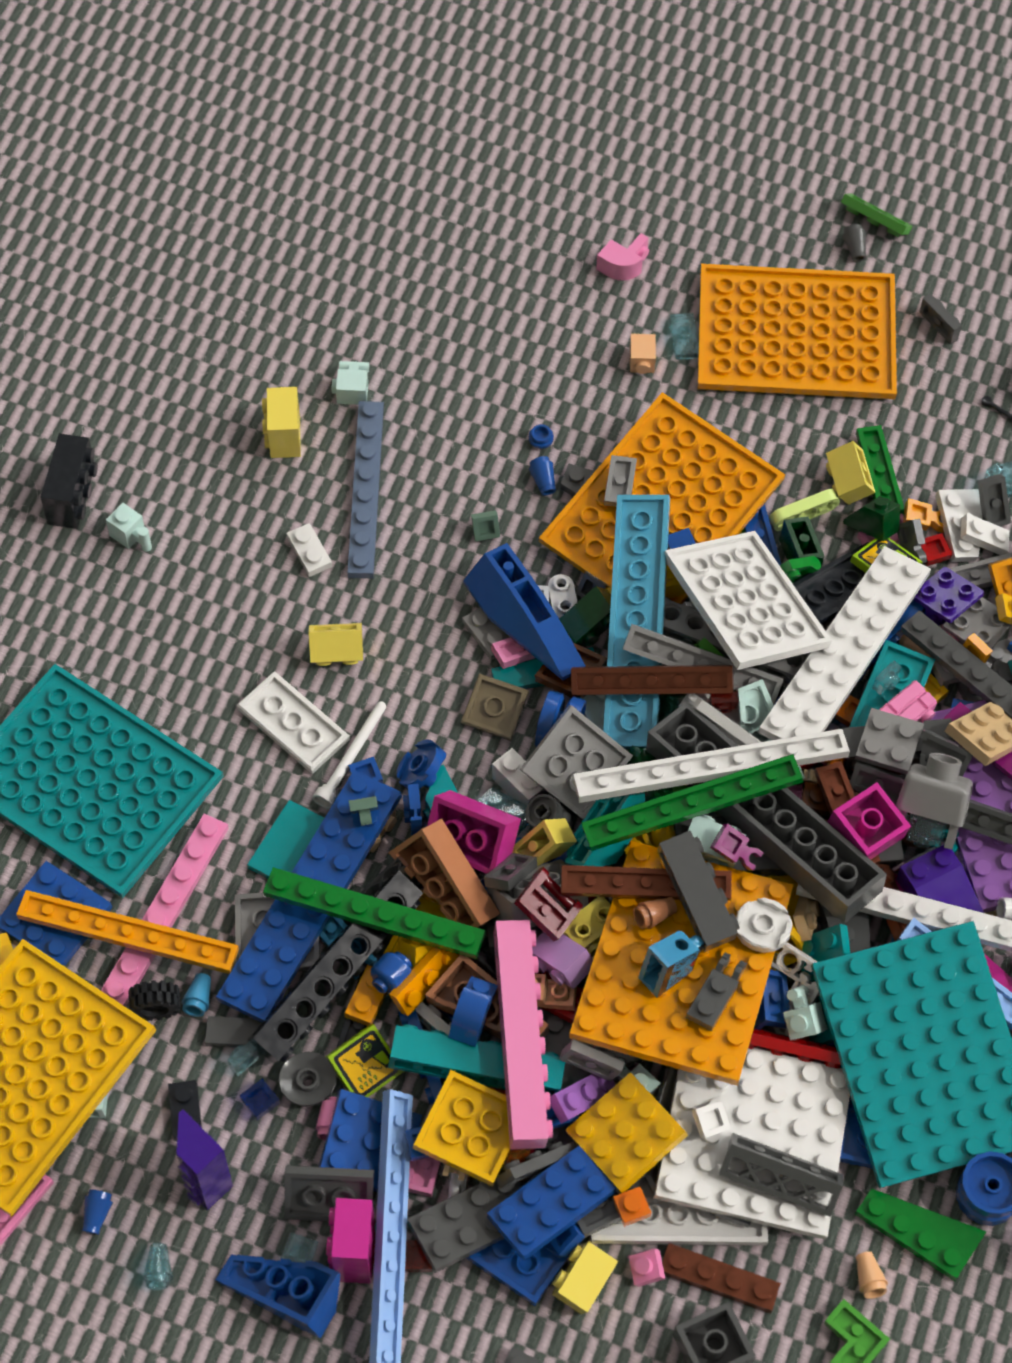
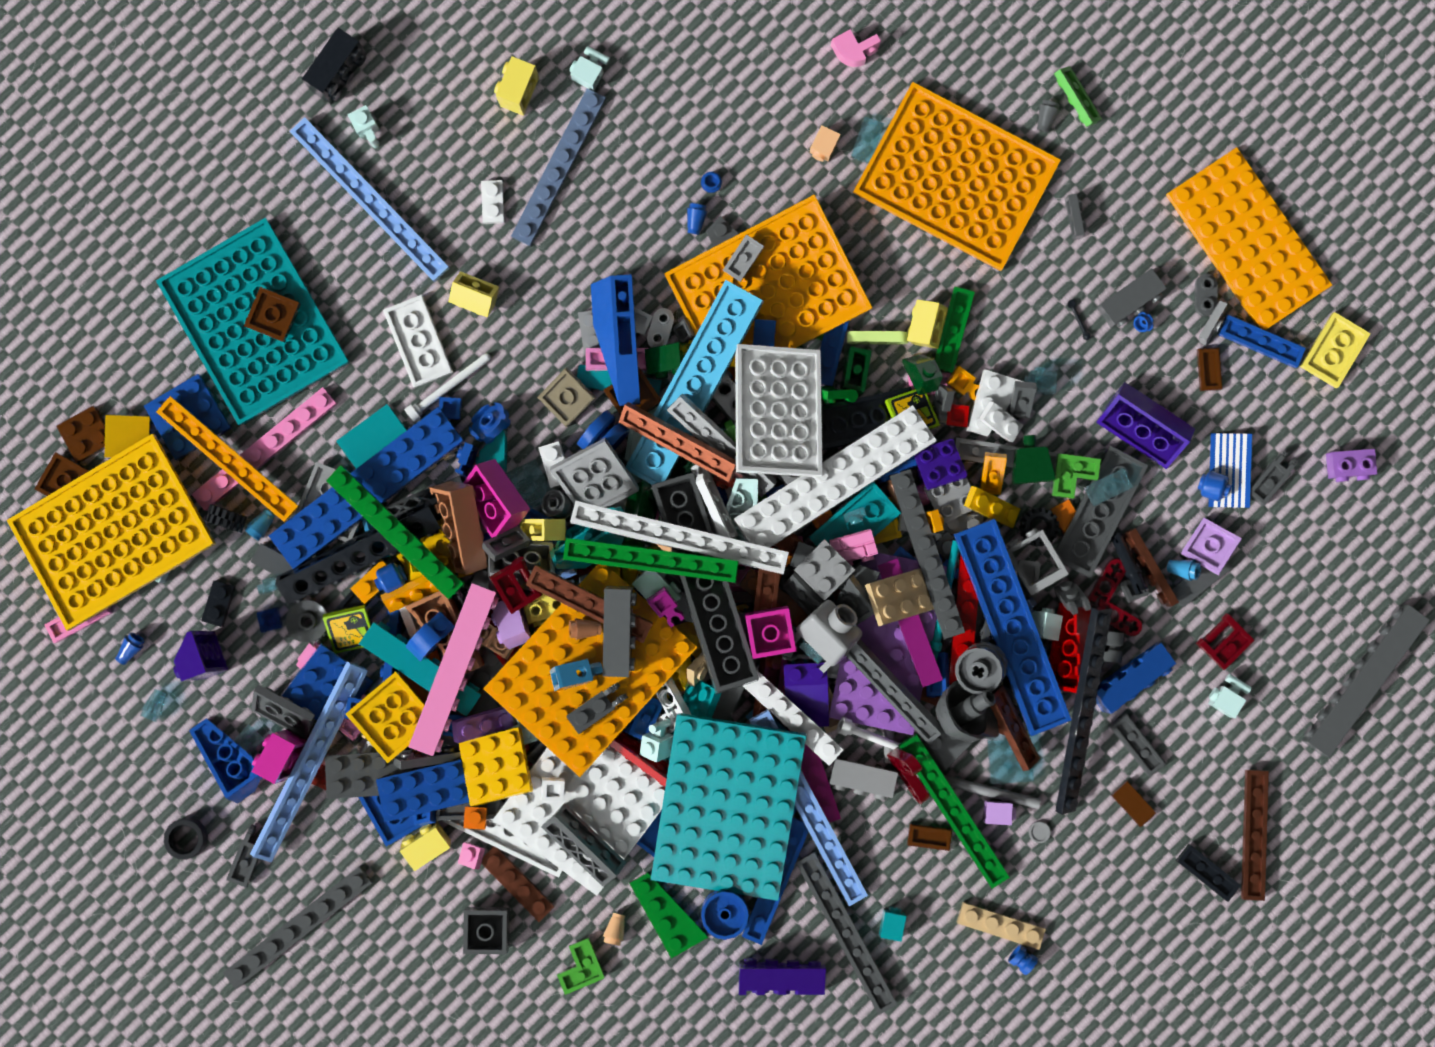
camera: 30 degrees right, 25 degrees up
(111, 755) = (272, 314): none -> reddish brown plate
(169, 600) = (369, 199): none -> light blue plate
(363, 807) = (426, 445): sand green tile -> none
(485, 525) = (630, 242): sand green tile -> none
(592, 1060) = (492, 703): light grey plate -> none
(764, 925) = (656, 671): white tile -> none

